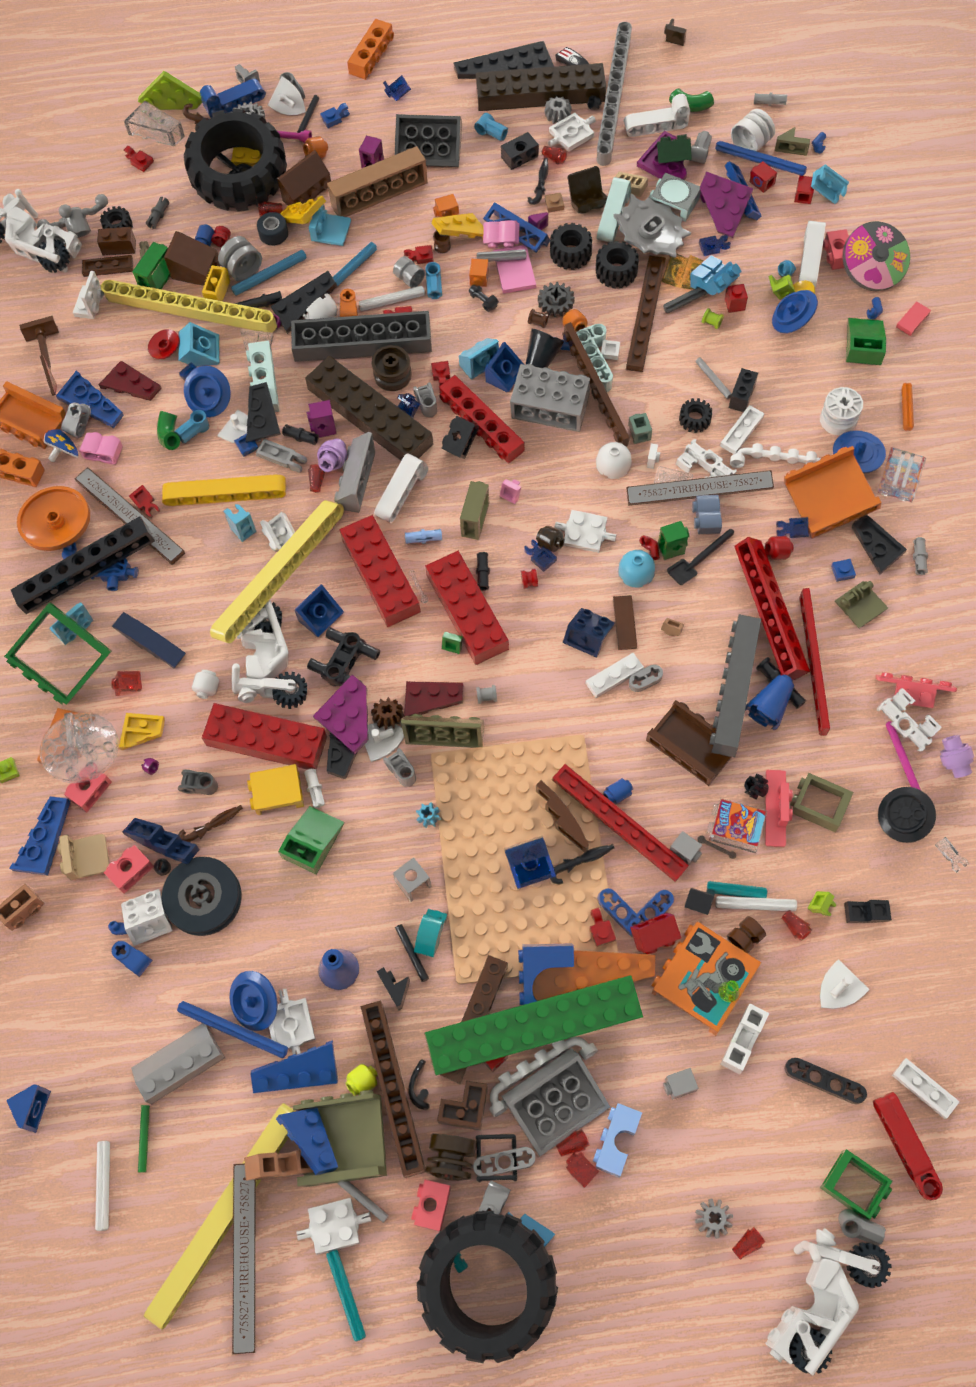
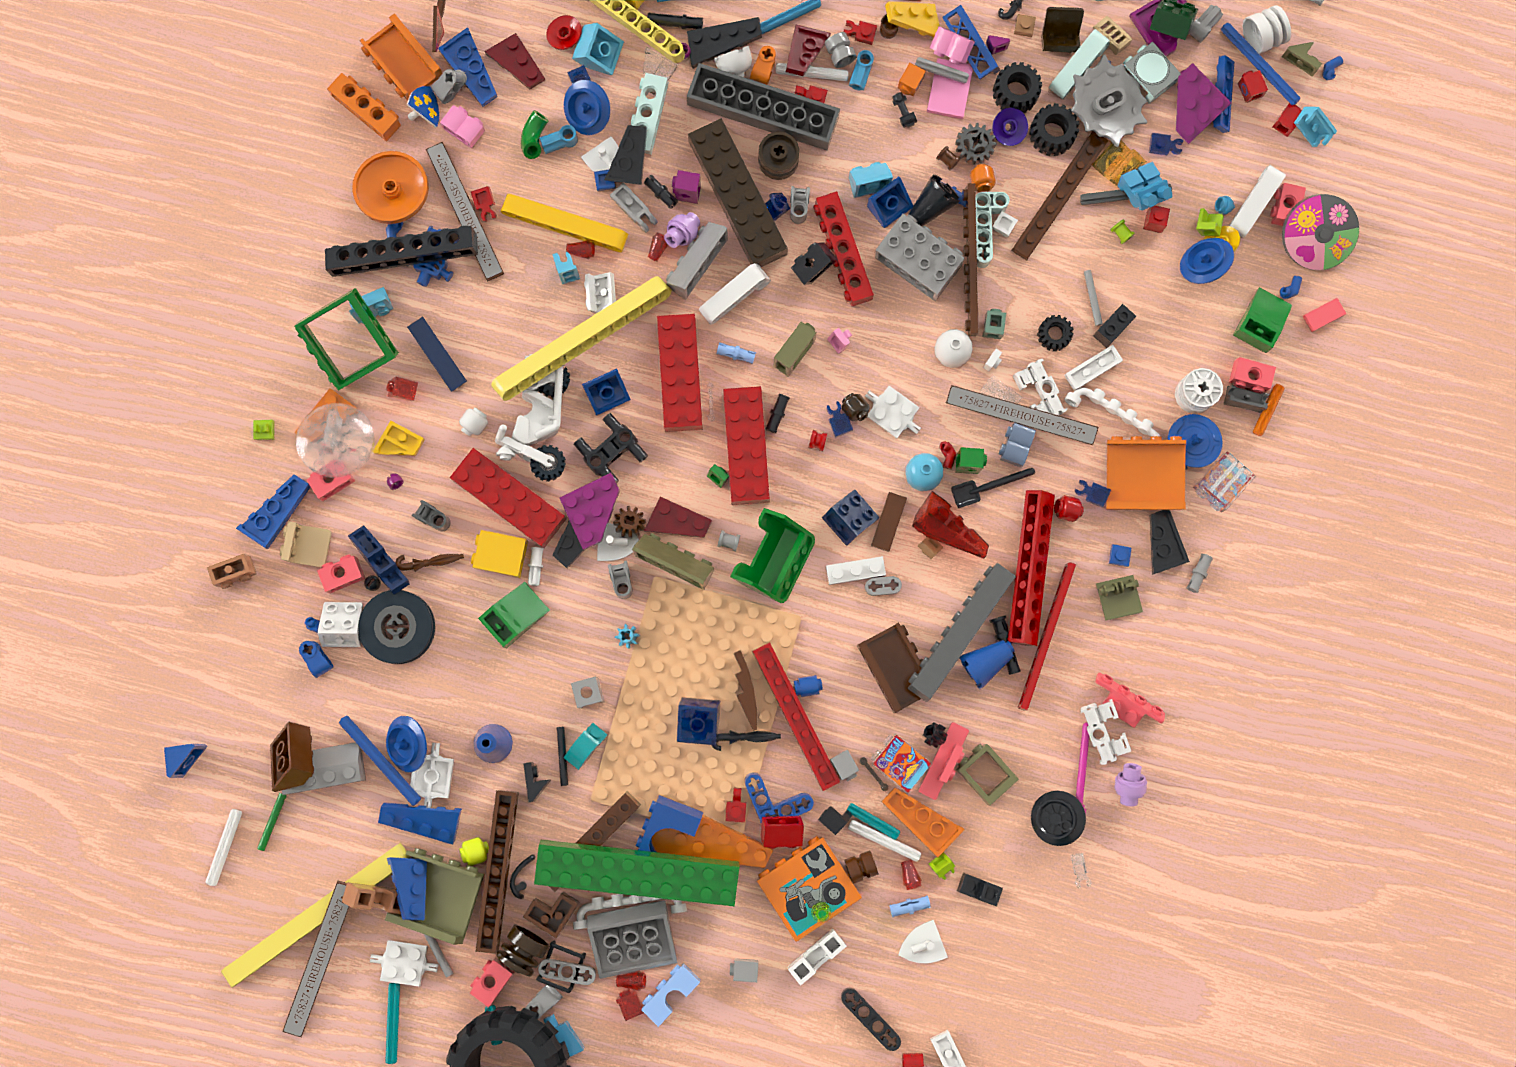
camera: 15 degrees right, 15 degrees up
(141, 1059) = (291, 757): none -> reddish brown slope
(249, 504) = (581, 249): none -> clear red cone
(377, 282) = (805, 48): none -> dark red wing
(440, 371) = (826, 178): red plate -> none
(539, 688) = (777, 558): none -> green windscreen
(583, 271) = (1018, 126): none -> dark purple dish
(667, 604) = (941, 524): none -> clear red wedge
(791, 873) = (927, 825): none -> orange wing
(810, 954) = (910, 906): none -> light blue pin
(884, 406) = (1245, 399): none -> dark grey hinge
(886, 378) = (1263, 375): none -> coral brick

